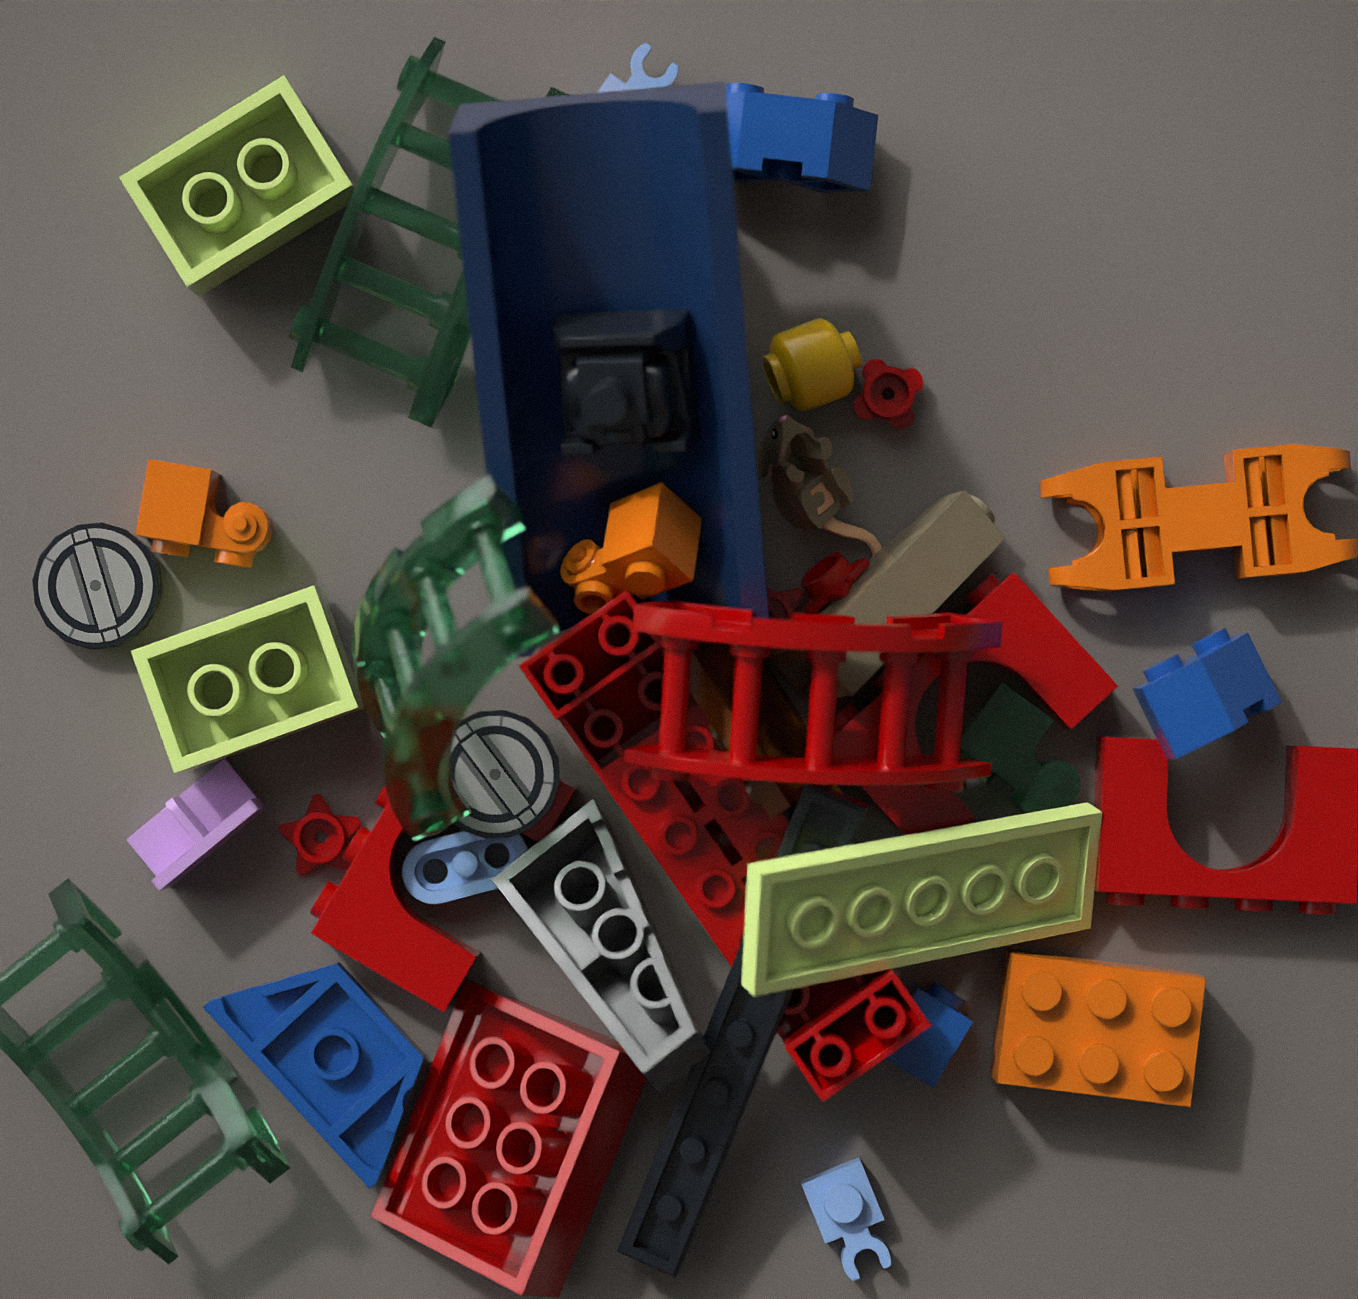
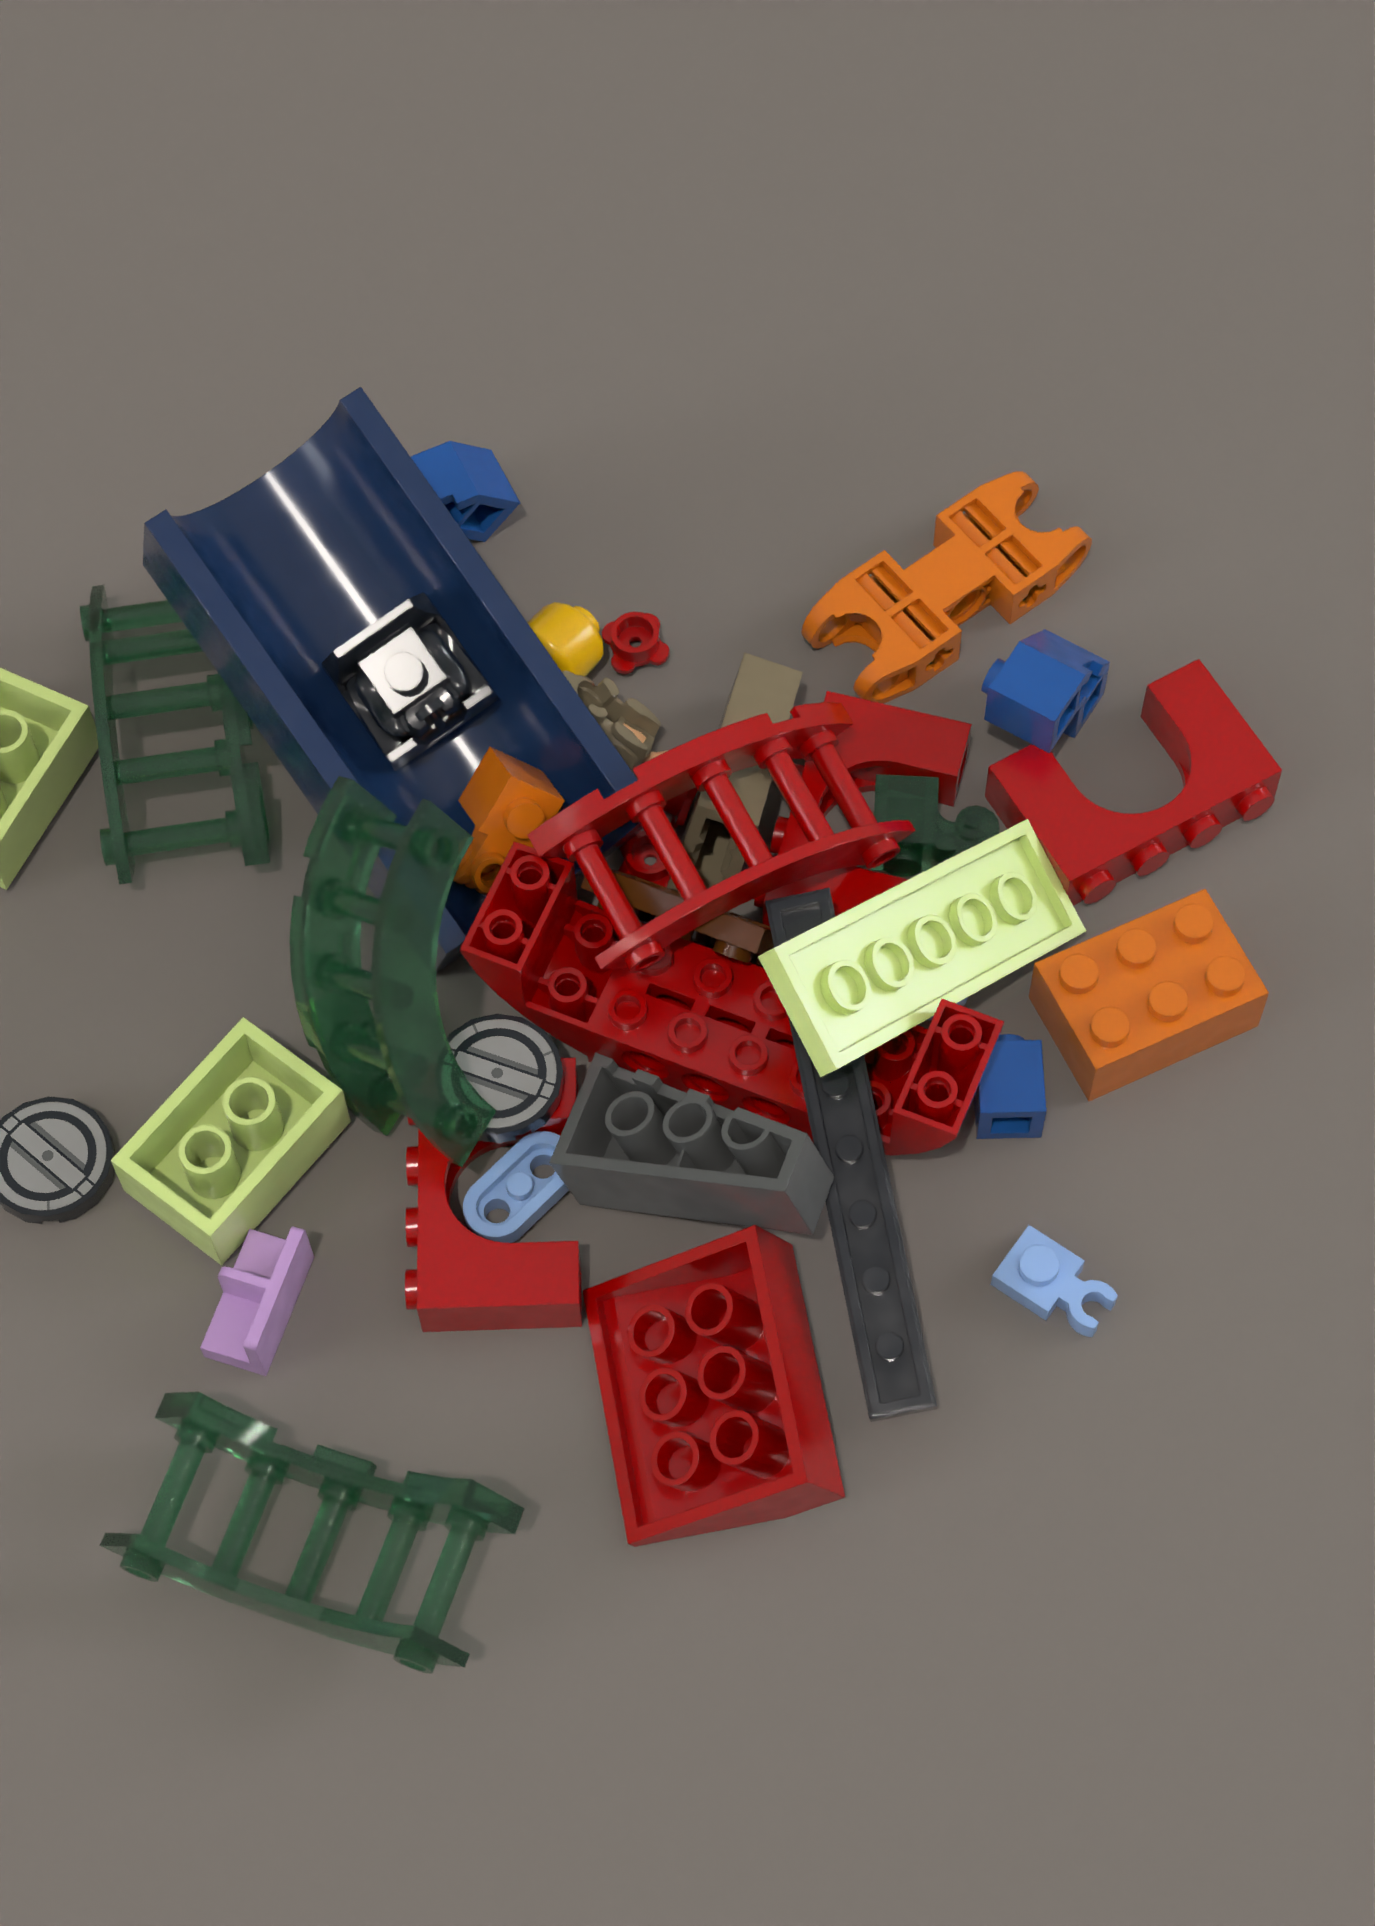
camera: 35 degrees left, 25 degrees down
(182, 513) = (100, 1057): orange brick -> none
(302, 836) = (372, 1234): red plate -> none
(329, 1057) = (501, 1422): blue wing -> none

